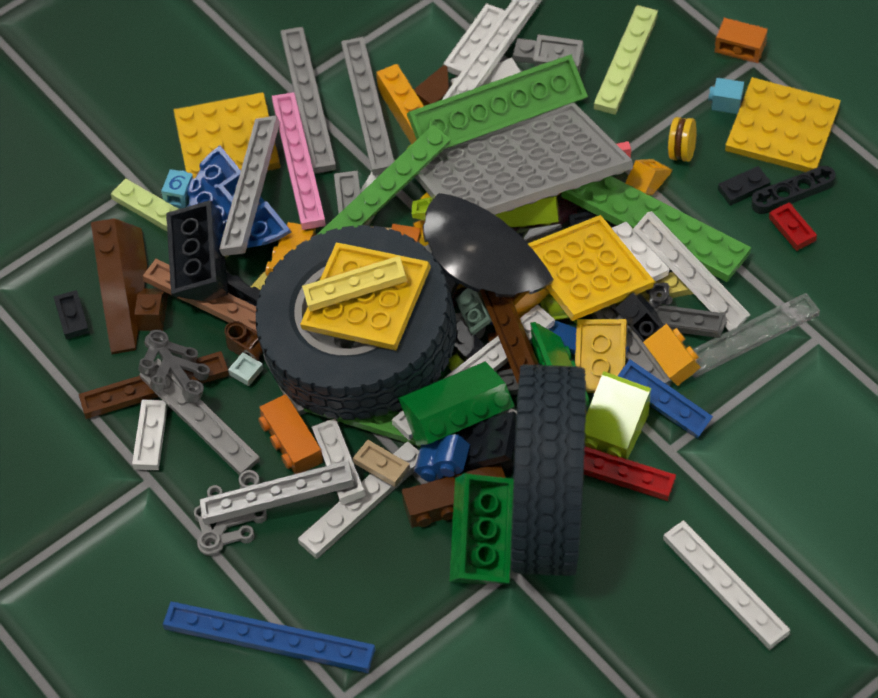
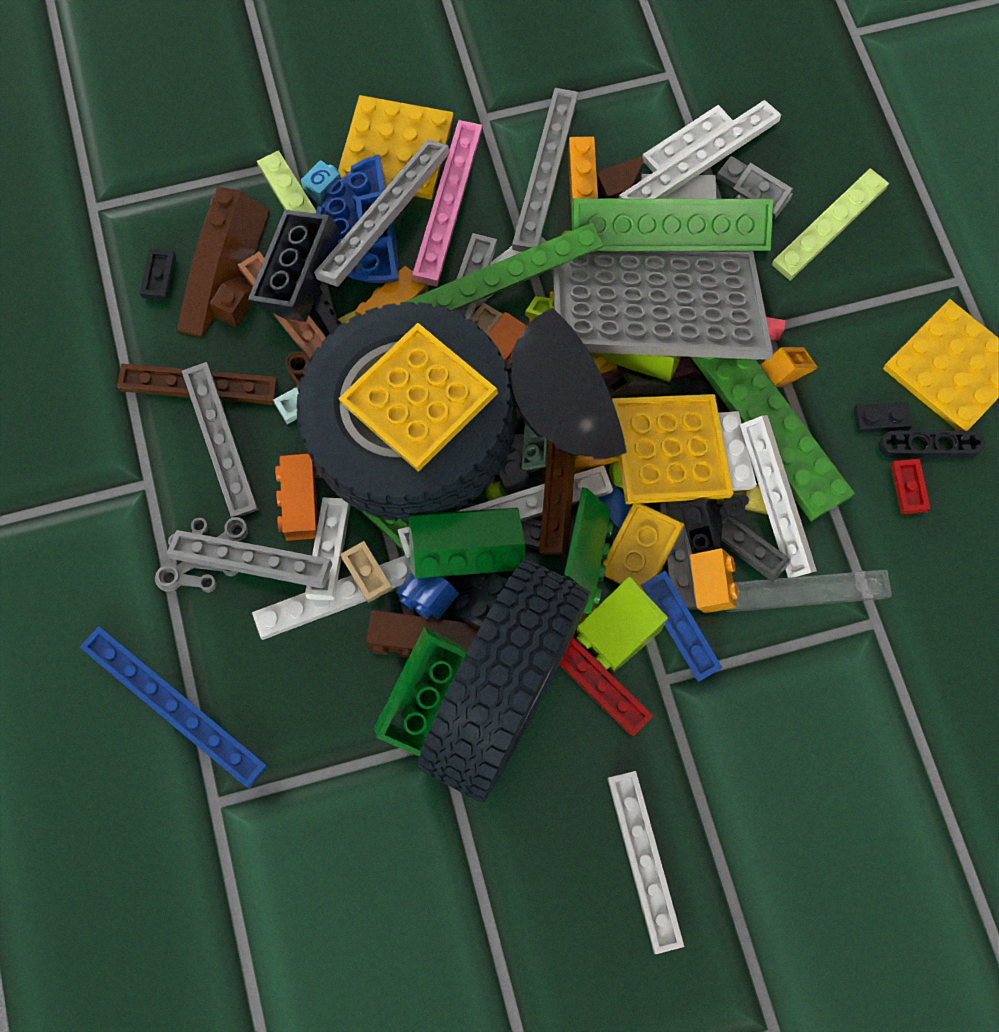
camera: 20 degrees right, 15 degrees up
(150, 435) = (167, 437): white plate -> none
(158, 342) = (218, 374): flat silver plant -> none
(308, 100) = (492, 139): light grey plate -> none
(354, 283) = (409, 380): light yellow plate -> none
(682, 139) = (842, 340): yellow head -> none
(726, 95) = (913, 309): medium azure brick -> none
(741, 40) = (958, 252): orange brick -> none

